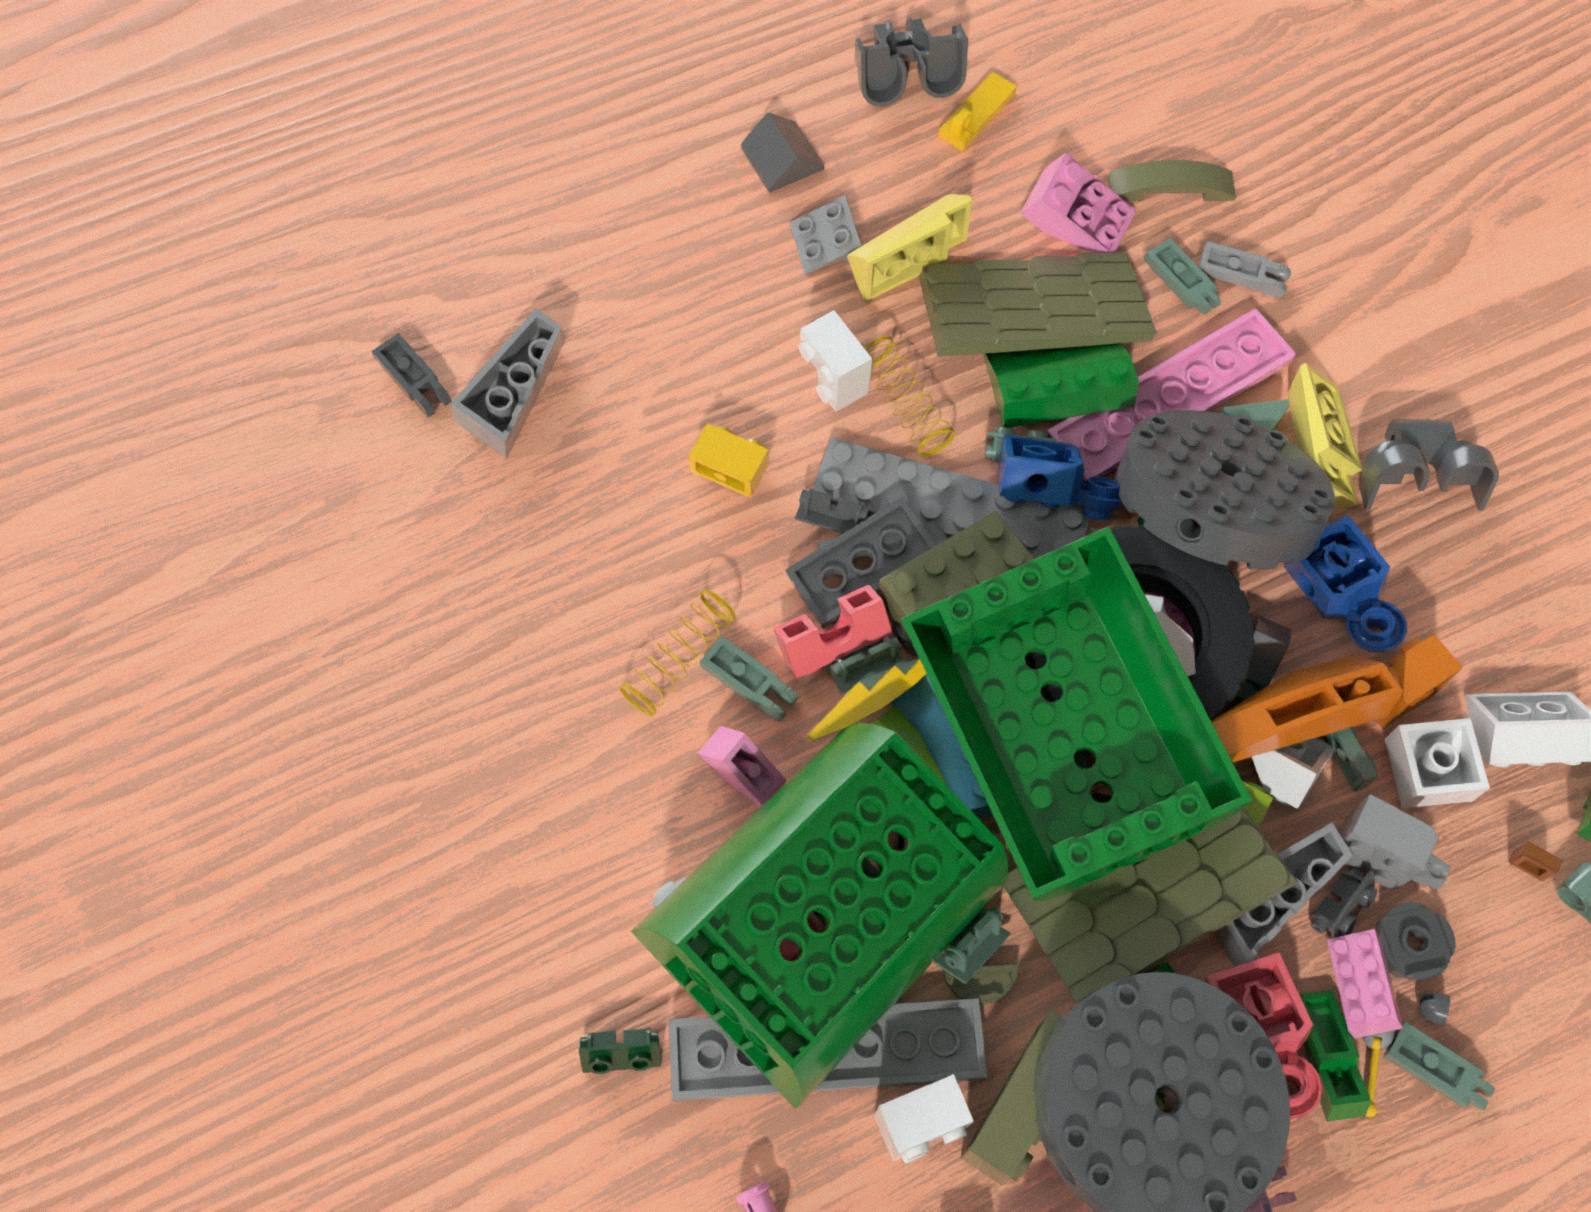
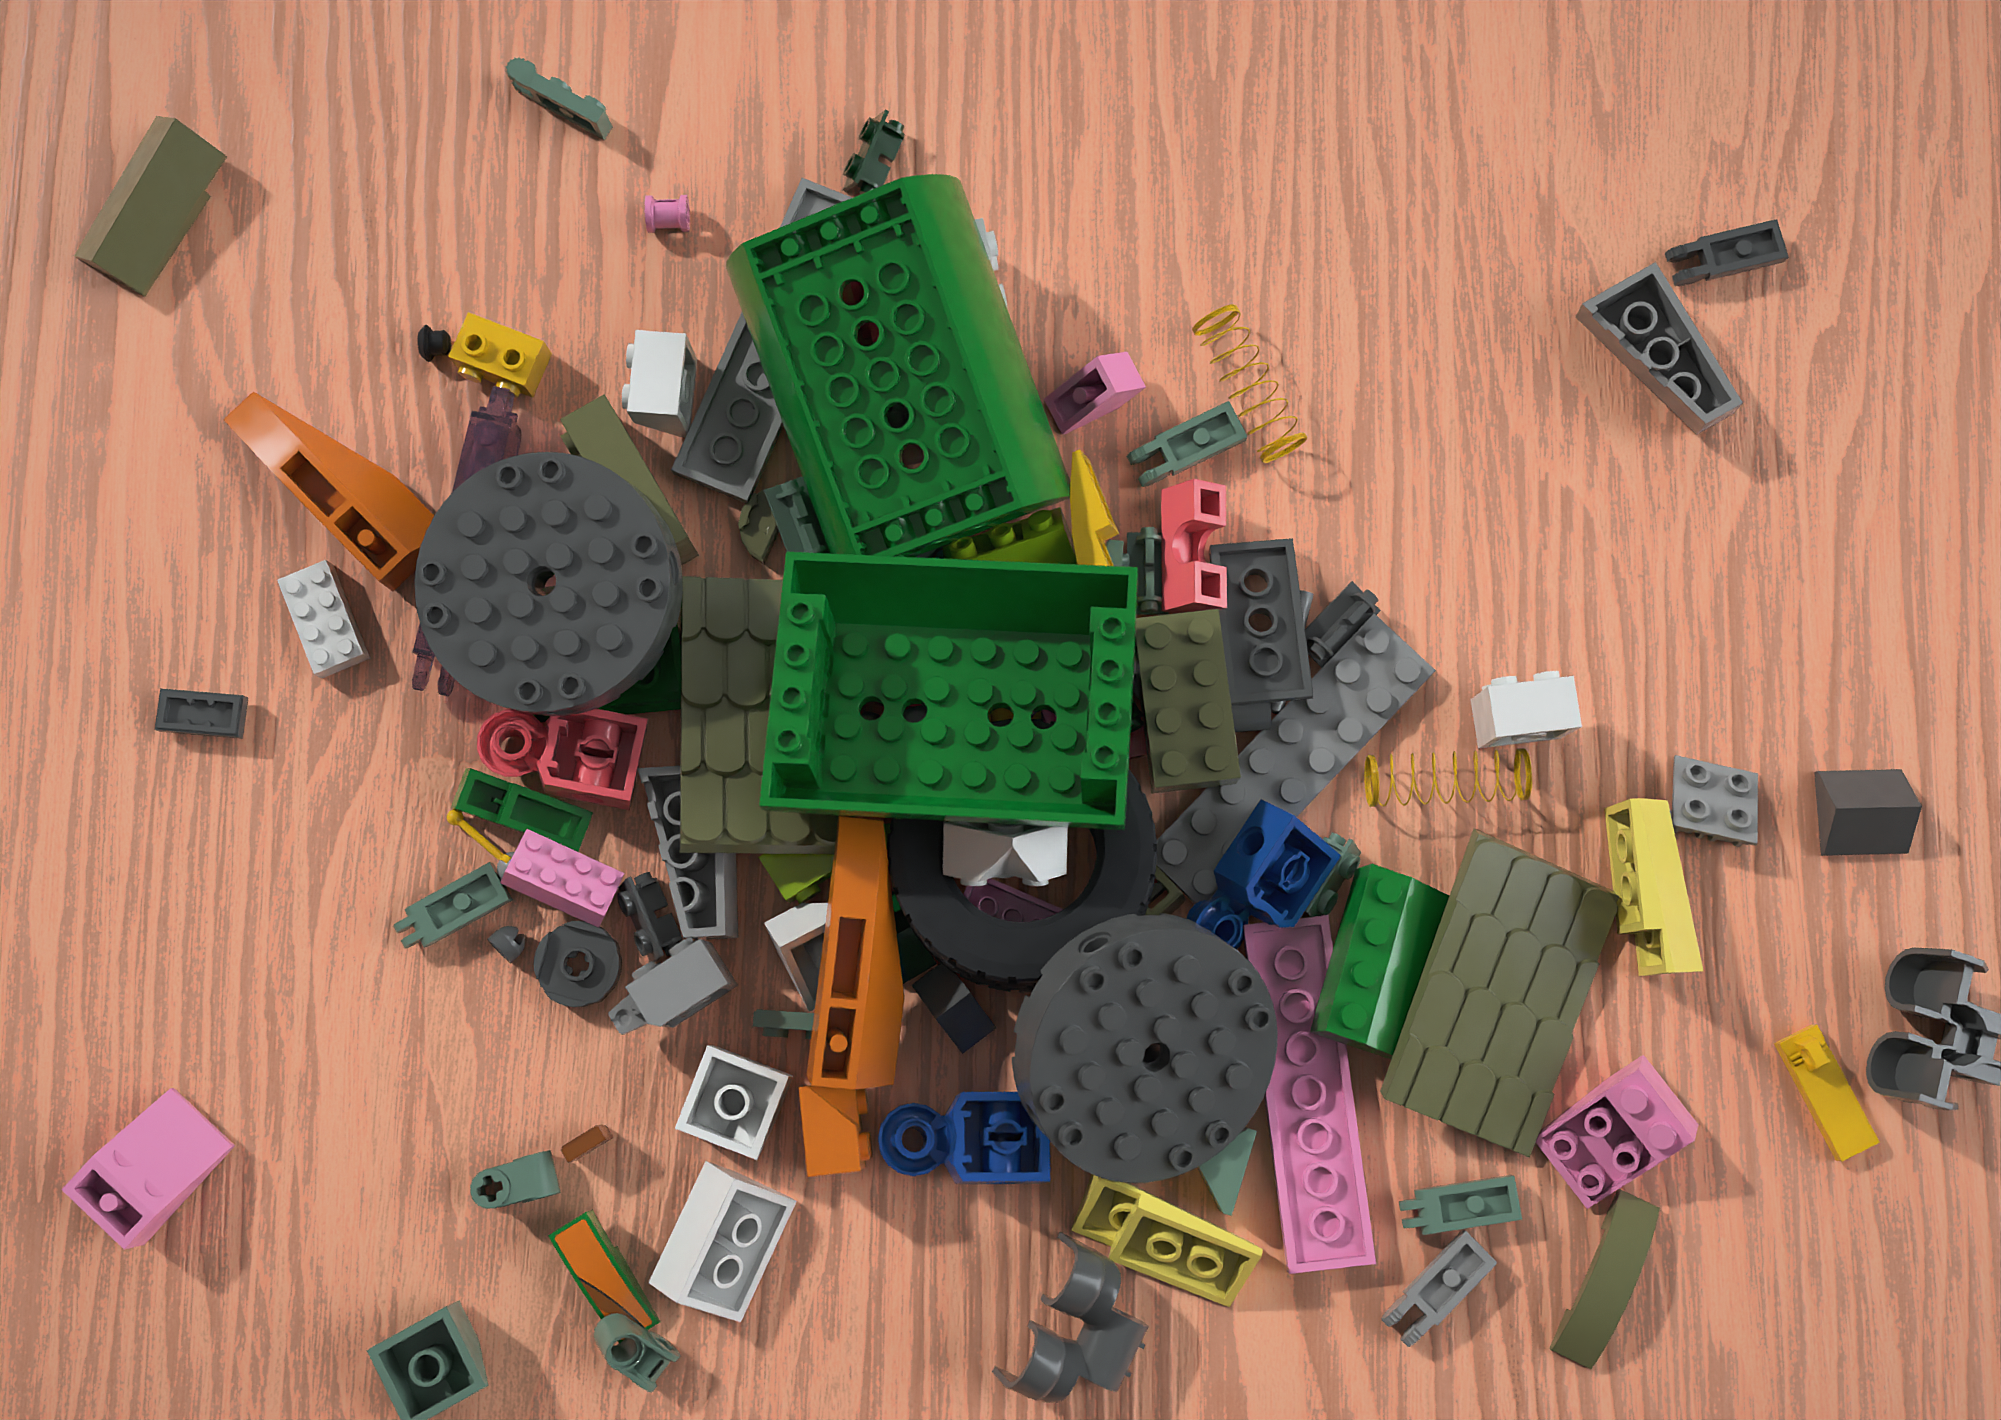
camera: 120 degrees right, 15 degrees up
(729, 459) = (1455, 539): yellow brick -> none

